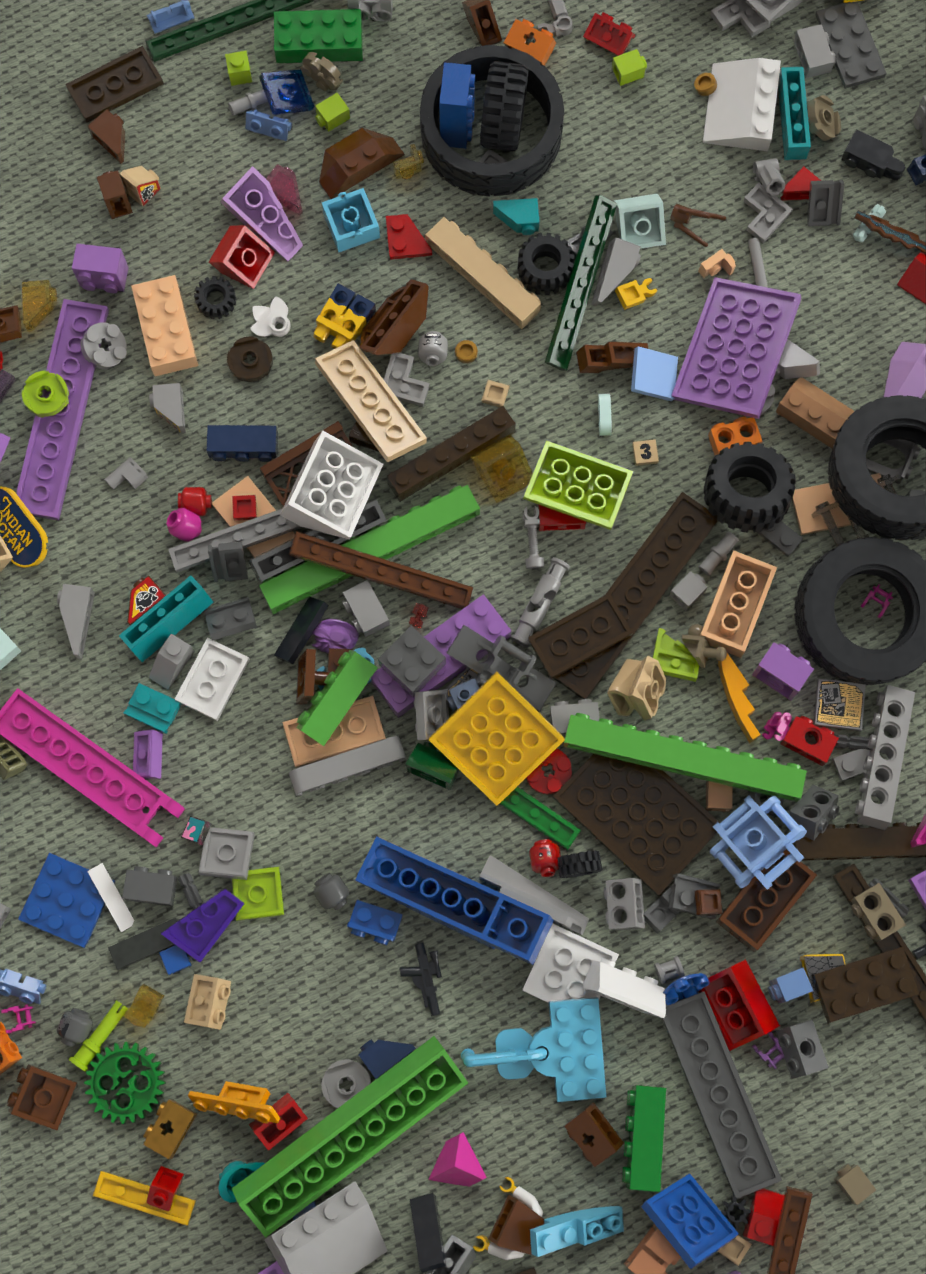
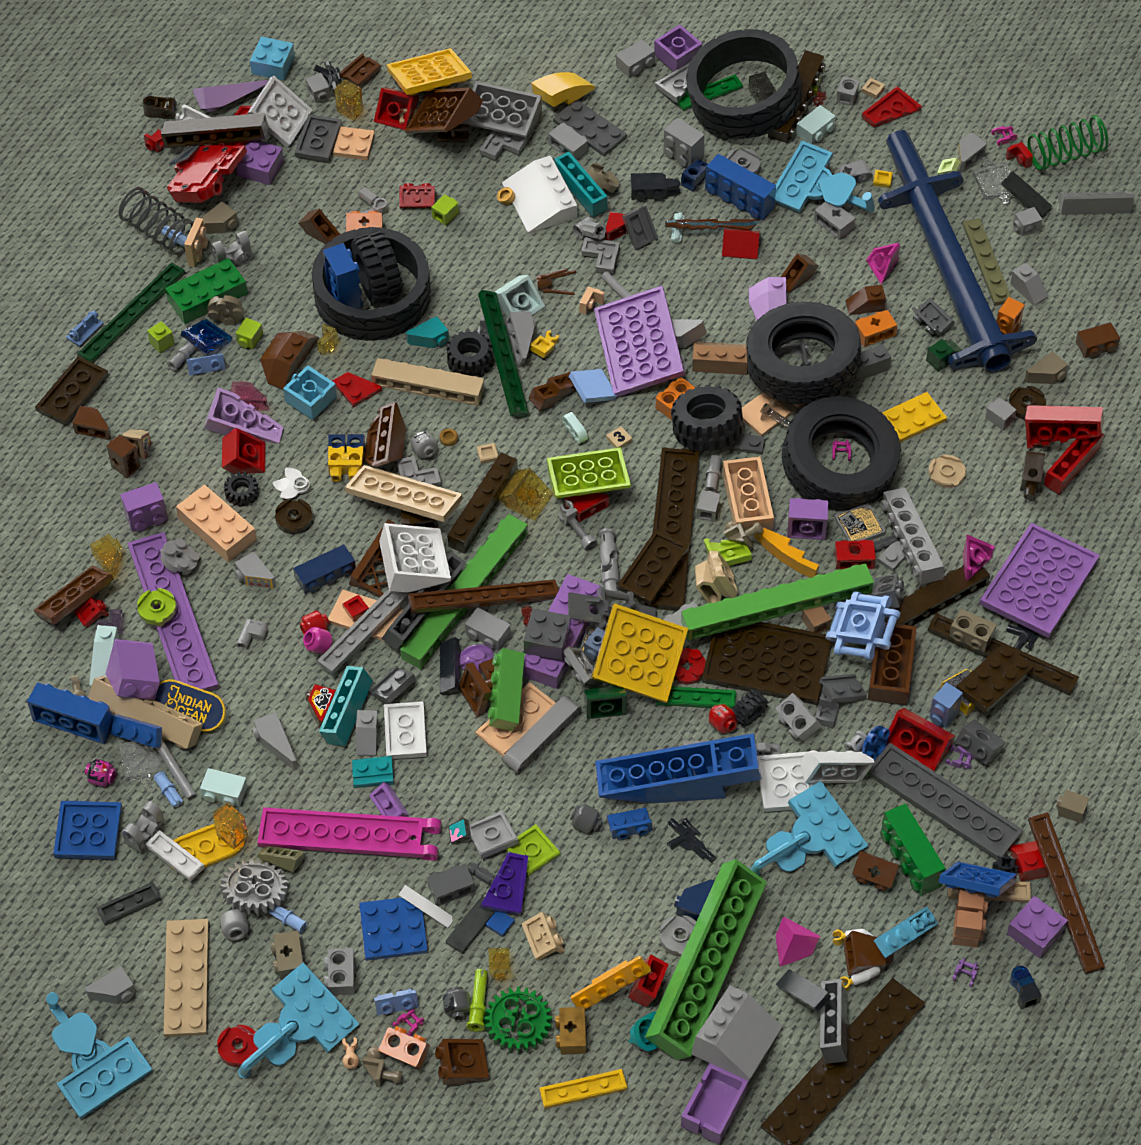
camera: 30 degrees left, 20 degrees down
(164, 1188) = (595, 1072): red bracket -> none
(228, 561) = (367, 646): dark grey plate -> none
(708, 902) = (854, 683): reddish brown tile -> none
(778, 722) = (823, 557): dark pink piece -> none

